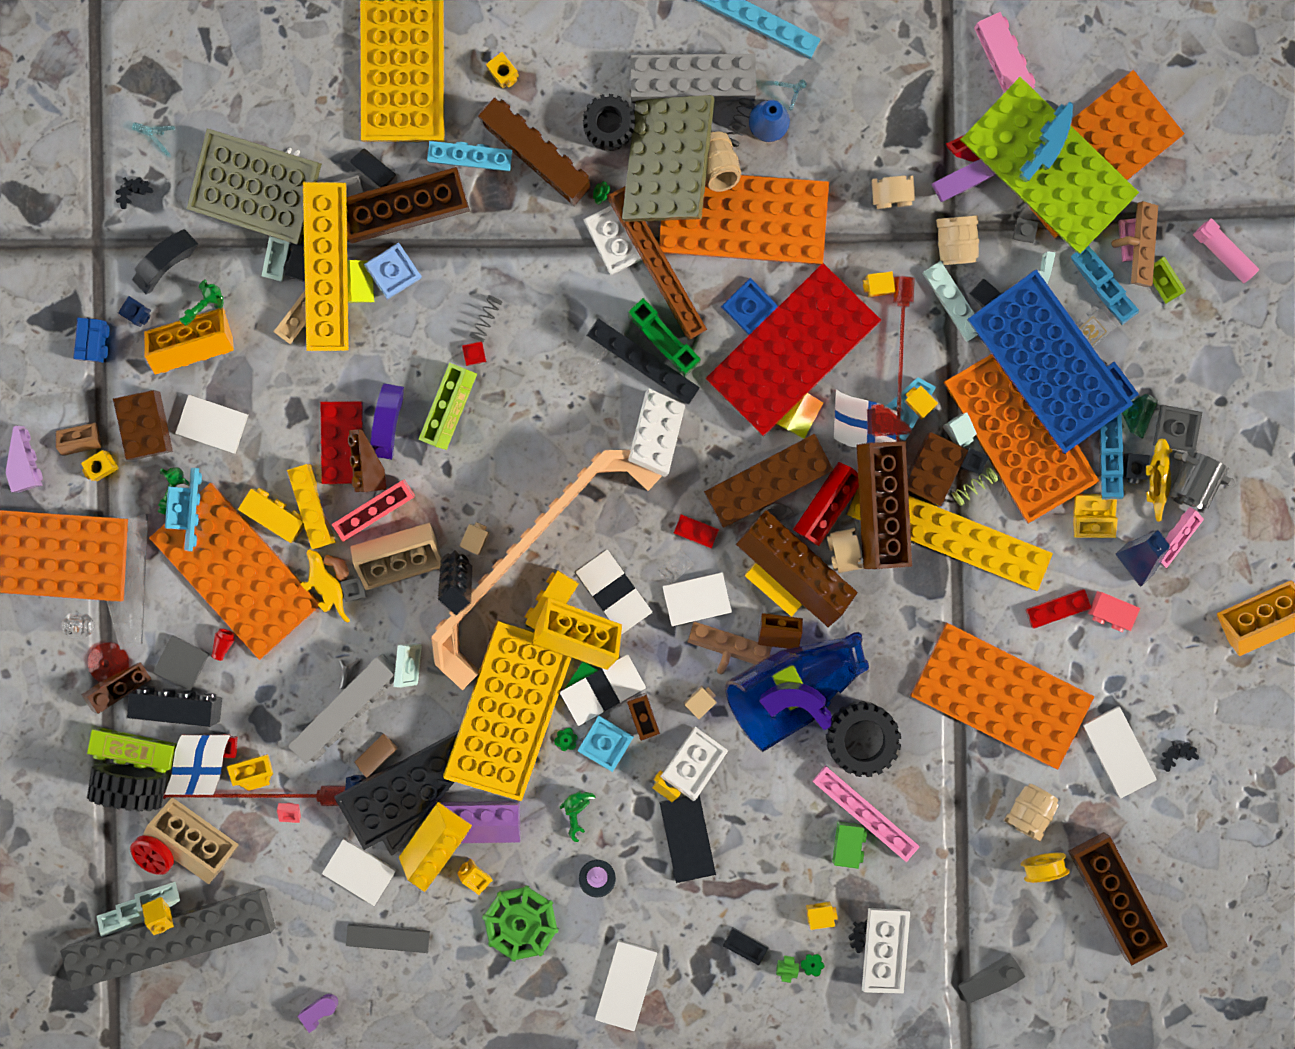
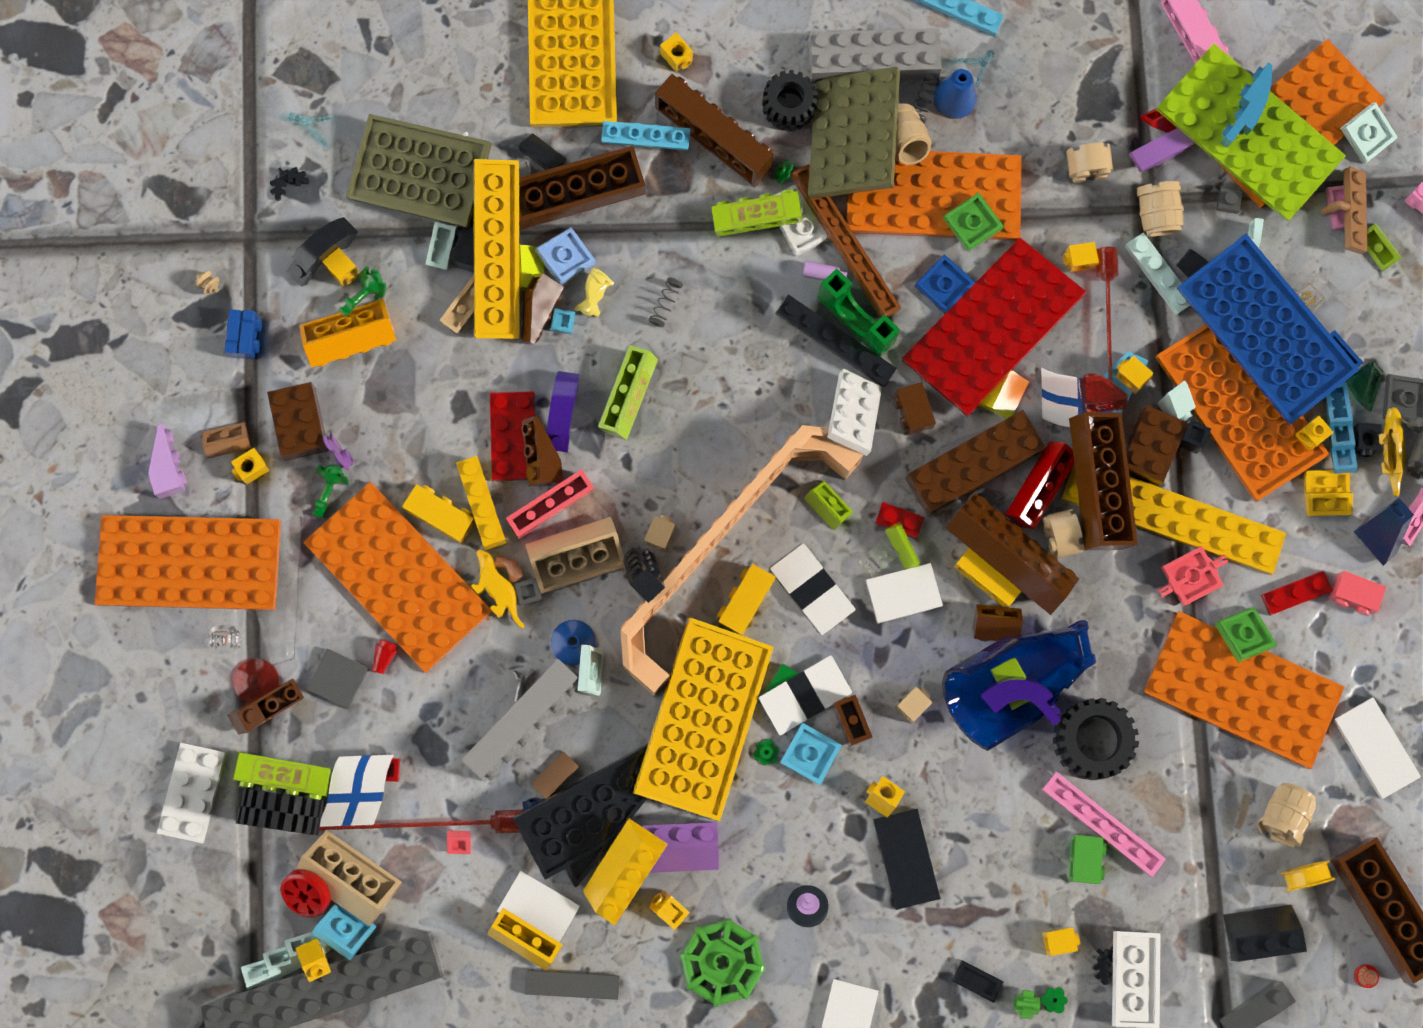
camera: 15 degrees left, 10 degrees down
(52, 761) = (191, 793): none -> white plate
(58, 289) = (207, 282): none -> tan wheel
(135, 312) = (289, 304): dark blue bracket -> none
(174, 707) = (332, 725): black brick -> none
(182, 278) = (341, 267): none -> yellow brick
(182, 459) = (342, 457): none -> medium lavender plate
(182, 508) = (342, 506): medium azure bracket -> none
(184, 889) = (343, 931): none -> medium azure plate
(211, 424) = (372, 420): white tile -> none
(251, 772) = (417, 799): yellow slope -> none
(345, 900) = (524, 939): none -> yellow brick
(367, 315) = (539, 301): none -> slope
(389, 334) = (562, 321): none -> medium azure tile
(397, 624) = (571, 629): none -> blue dish
(419, 306) = (595, 288): none -> light yellow animal
(474, 353) = (654, 339): red plate -> none
(573, 235) = (757, 213): none -> lime brick
(573, 805) = (779, 821): green piece -> none
(578, 634) = (777, 631): yellow slope -> none
(631, 514) = (828, 505): none -> lime slope
(635, 292) = (819, 270): none -> lavender cylinder
(694, 763) = (910, 772): white tile -> none
(698, 556) = (903, 546): none -> lime slope
(714, 427) = (914, 408): none -> reddish brown brick
(727, 644) = (938, 640): medium nougat plate -> none
(778, 248) = (973, 222): none -> bright green tile
(962, 591) = (1192, 576): none -> coral plate
(989, 471) = (1183, 480): yellowish green piece -> none
(1003, 914) = (1264, 933): none -> black slope
(1007, 647) = (1246, 634): none -> bright green tile
(1085, 463) = (1314, 433): none -> yellow brick
(1091, 952) = (1366, 976): none -> red tile
(1105, 285) = (1315, 251): dark azure slope -> none
(1164, 166) = (1369, 132): none -> light aqua tile

